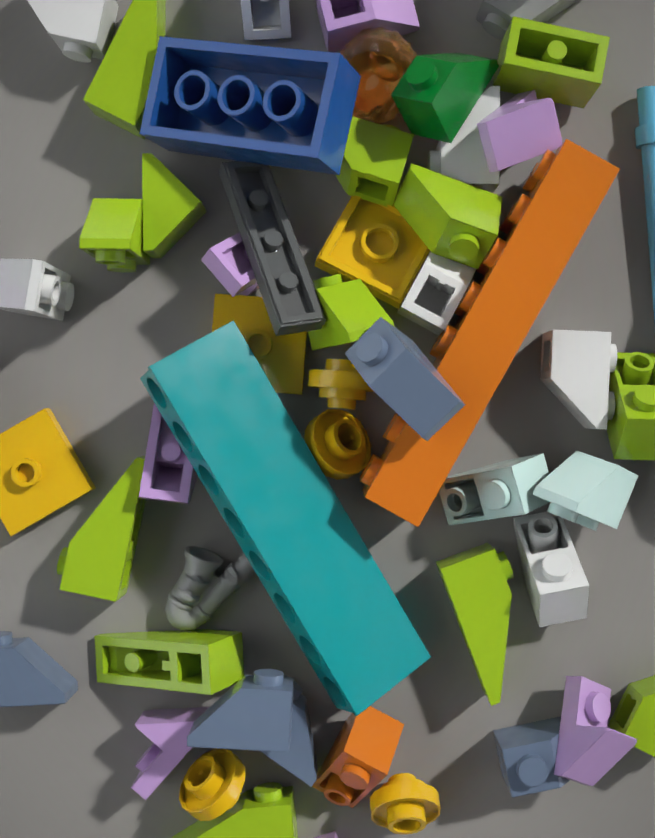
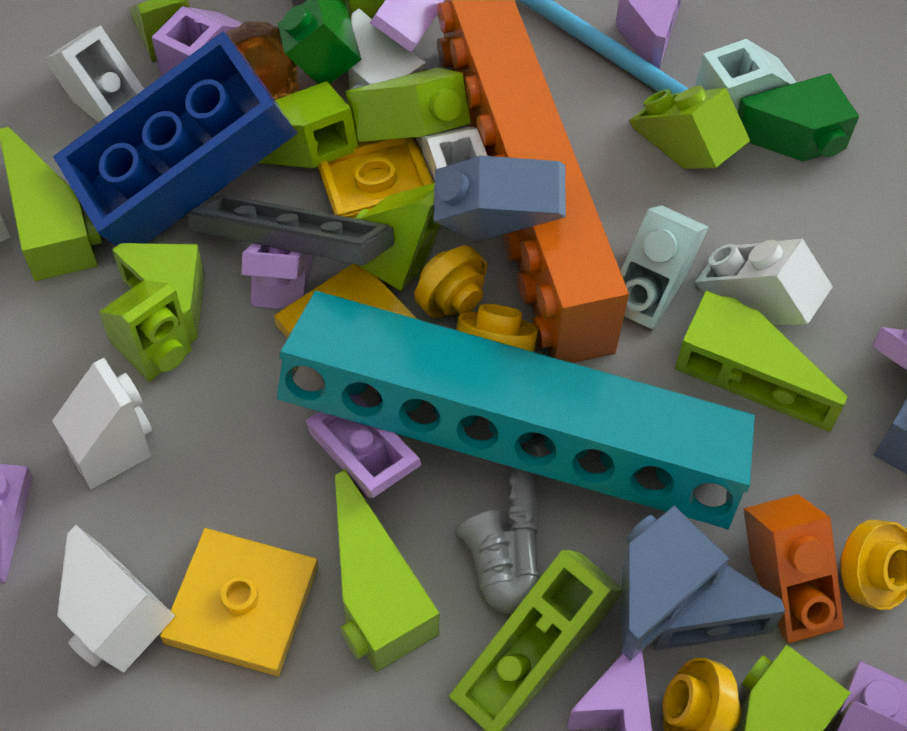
camera: 45 degrees left, 30 degrees down
(578, 372) = (624, 141): white slope -> none
(587, 490) = (726, 198): light aqua slope -> none

